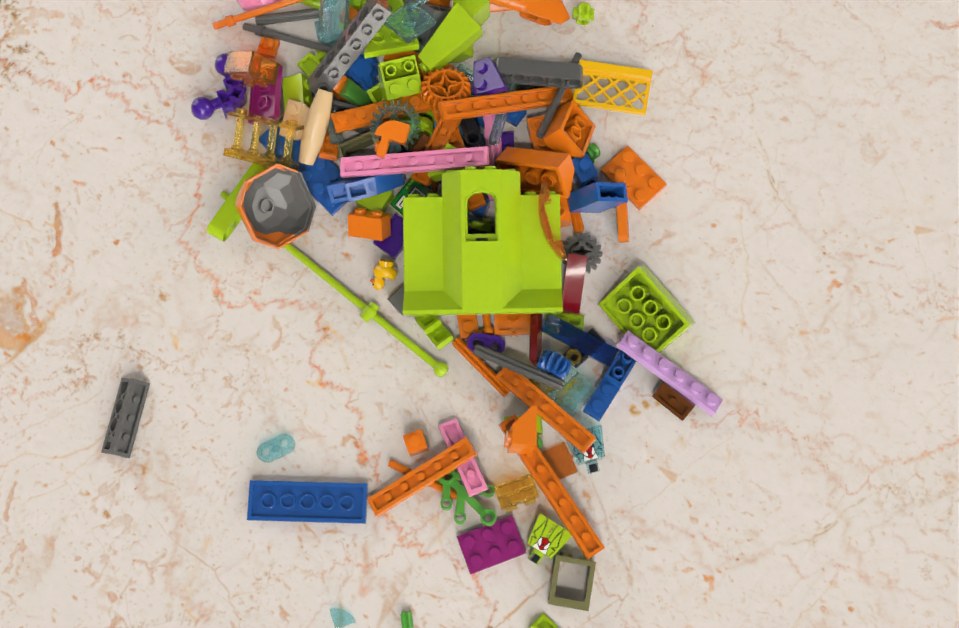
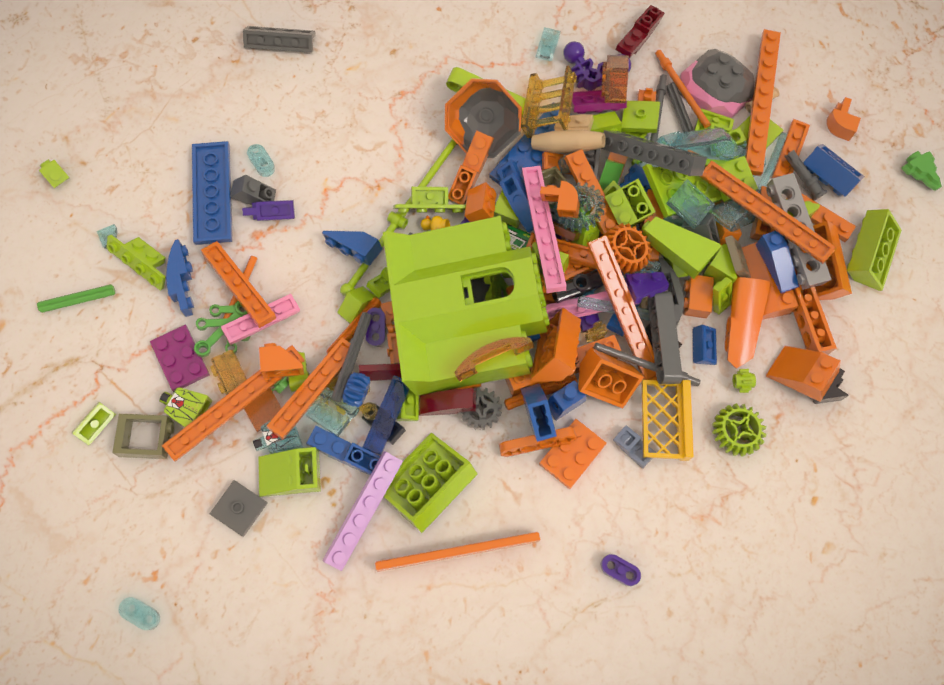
camera: 70 degrees right, 5 degrees down
(185, 134) = (548, 44): none -> clear light blue slope
(188, 38) = (640, 32): none -> dark red slope
(293, 53) = (641, 116): none -> lime plate
(315, 457) = (251, 190): none -> dark grey slope
(325, 230) = (471, 167): none -> orange slope
(339, 440) = (271, 210): none -> dark purple hinge
(354, 275) = (429, 198): none -> lime bracket
(374, 582) = (140, 258): none -> lime bracket
(395, 352) = (358, 244): none -> blue slope
(396, 540) = (177, 276): none -> blue slope
(415, 442) = (272, 275): orange brick -> none
(457, 362) = (354, 303): none -> lime slope
(468, 59) = (674, 287): none -> dark grey slope
(495, 38) = (698, 296): none -> orange brick
(498, 15) = (722, 295): none -> lime plate
(520, 135) = (597, 332): none -> clear yellow plate
(542, 42) = (704, 345): none -> blue slope
(593, 151) = (592, 406): bright green plate -> none
(625, 440) = (289, 472): none -> lime slope
(627, 18) = (754, 436): none -> lime gear
(633, 123) = (633, 446): none -> sand blue slope
(652, 493) = (238, 508): none -> dark grey plate
(673, 401) = (334, 518): reddish brown plate -> none
(716, 295) = (457, 551): none -> orange tile
(745, 153) = (620, 569): none -> dark purple plate
(745, 592) = (140, 614): none -> clear light blue plate

